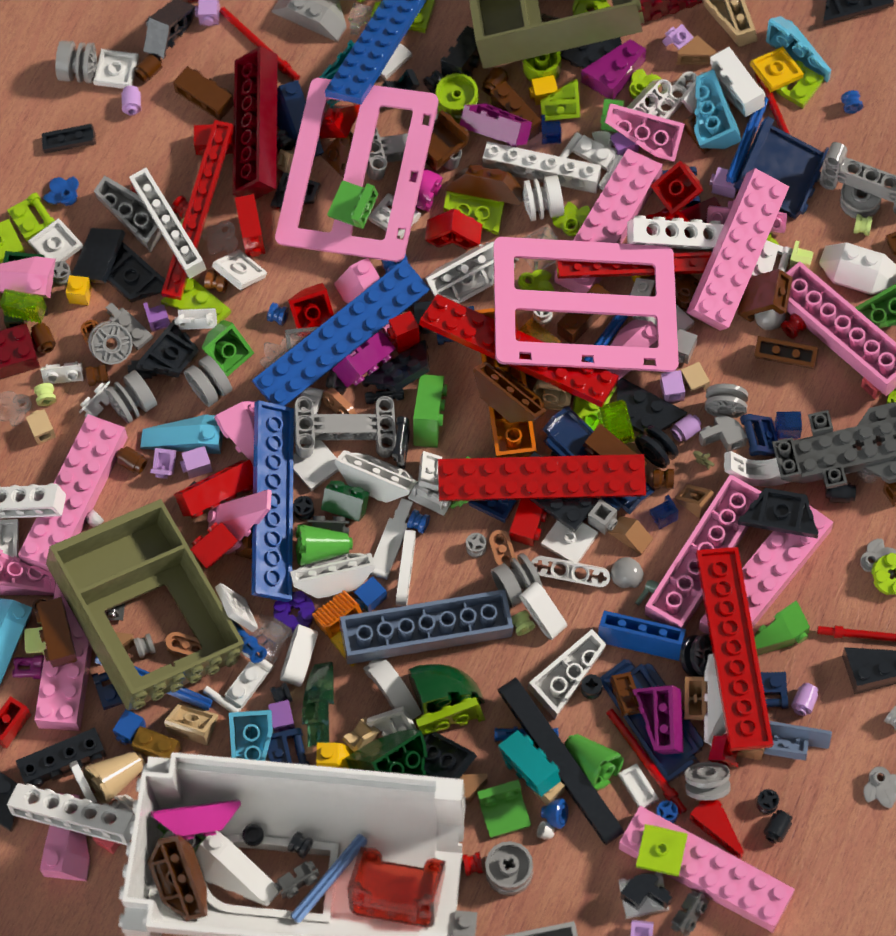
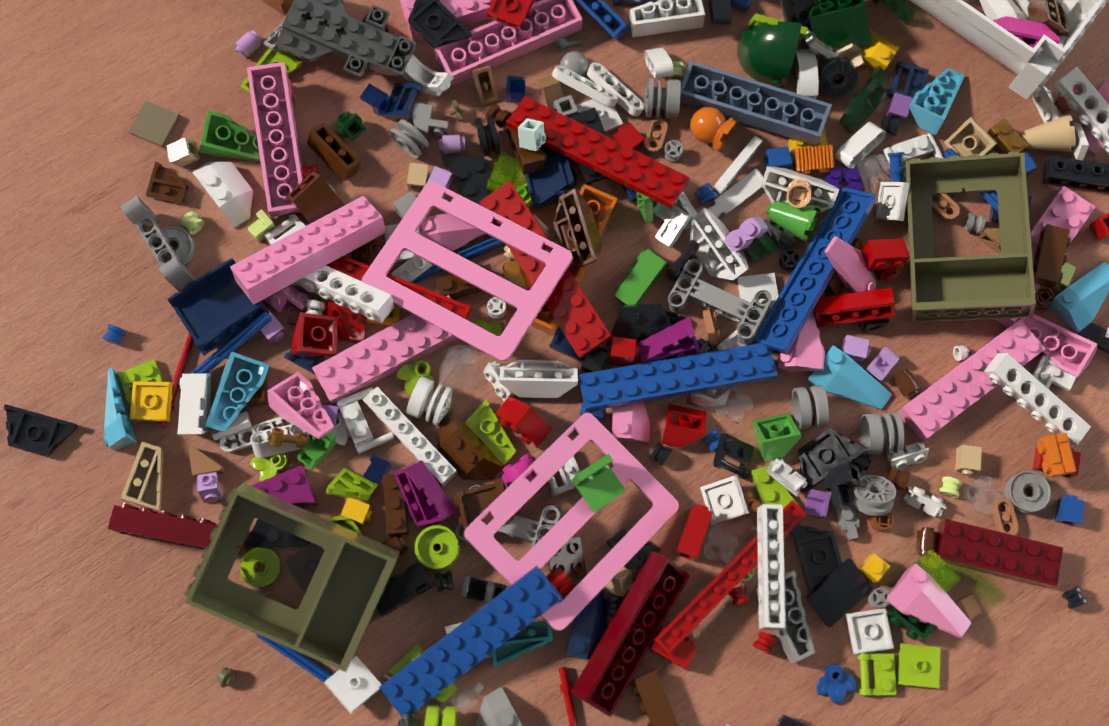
camera: 155 degrees left, 10 degrees up
(35, 664) = (1072, 256): magenta piece -> none
(144, 331) = (839, 481): none -> black brick
(255, 312) = (735, 450): none -> black plate
(317, 276) = (660, 454): none -> black wheel
(329, 553) = (798, 193): none -> light nougat wheel
(354, 482) = (743, 237): none -> lavender brick
(359, 704) = (841, 87): none -> black wheel
(452, 580) = (710, 126): none -> orange tile
(599, 545) = (585, 86): none -> white beam
(609, 447) = (531, 134): none -> light aqua brick
(645, 90) = (277, 436): none -> pearl gold bar
(696, 210) = (315, 307): none -> white wheel
(790, 384) = (349, 126): none -> dark green brick

